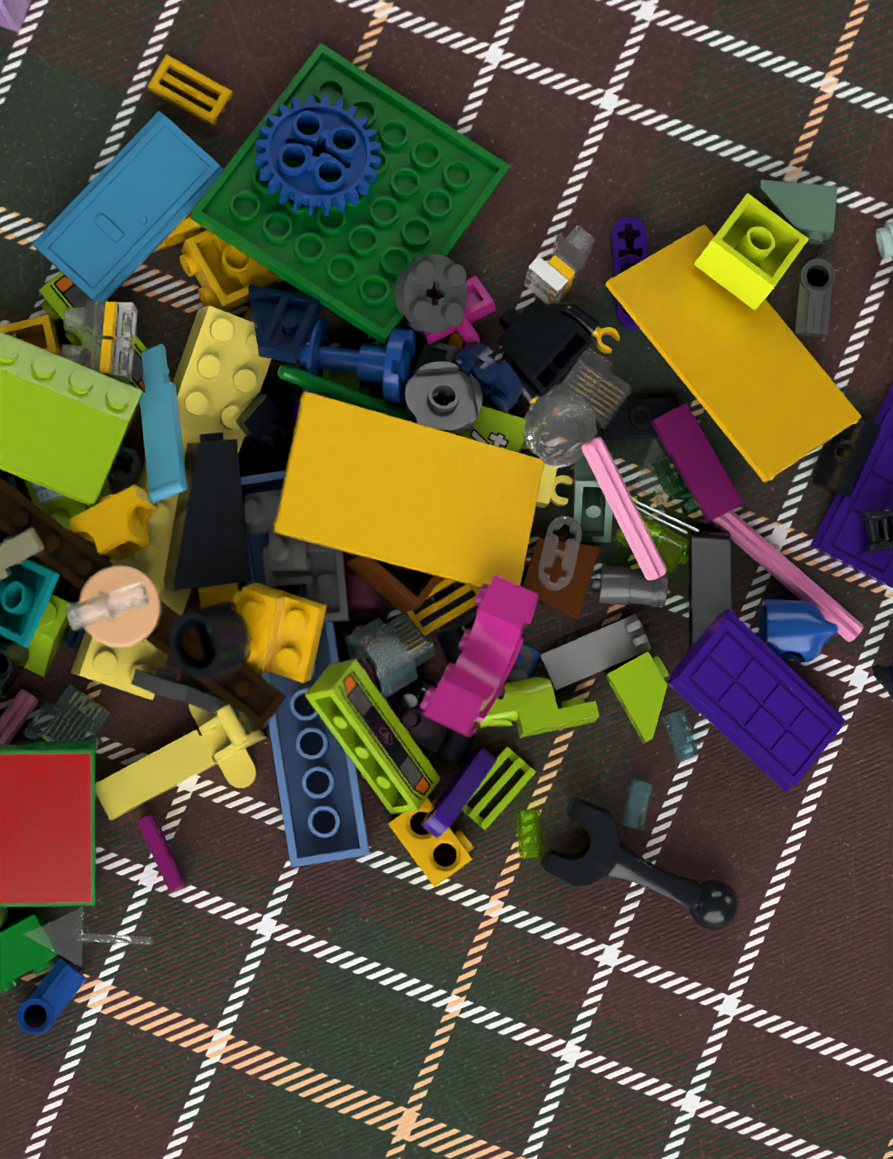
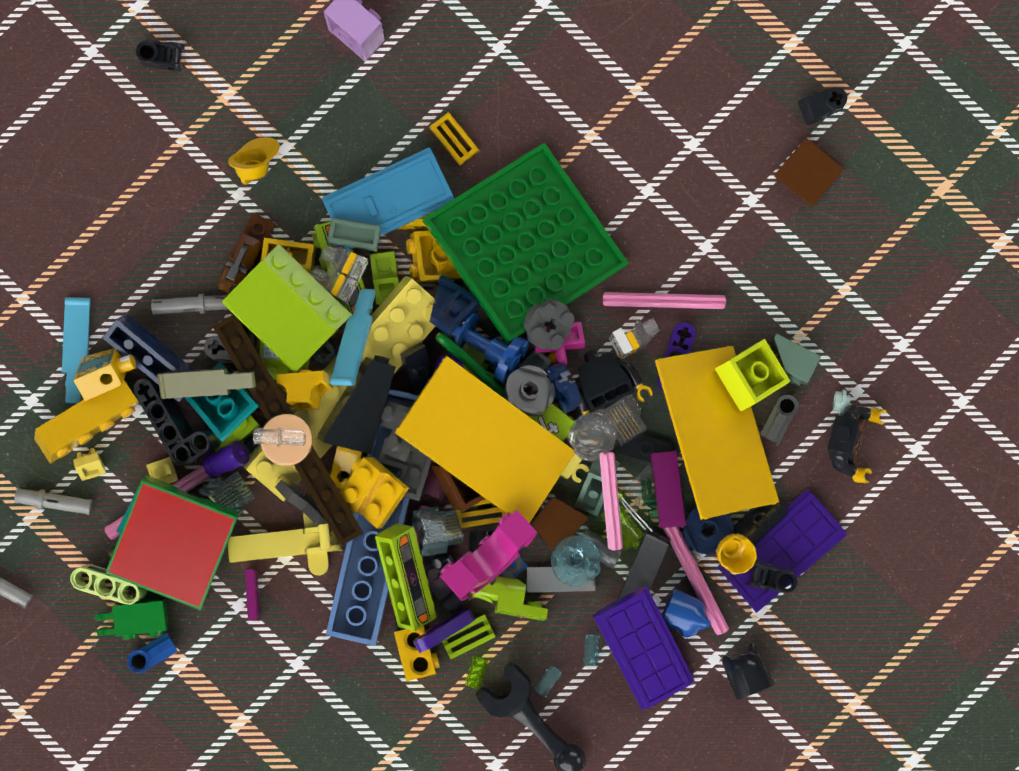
camera: 20 degrees right, 0 degrees up
(46, 673) = (226, 459): none -> dark purple piece
(66, 937) = (176, 620): clear piece -> none
(100, 276) = (354, 234): none -> sand green tile
(167, 320) = (384, 274): none -> lime slope
(221, 635) = (339, 481): black piece -> none
(330, 127) = (498, 227): blue gear -> none
(550, 551) = (556, 508): clear beam -> none
(581, 199) = (664, 300): none -> bright pink axle
(608, 615) = (575, 561): none -> clear light blue plate
(641, 692) = (578, 614): lime slope -> none
(777, 520) = (703, 543): none -> dark blue plate
(832, 513) = (736, 553): none -> yellow hair

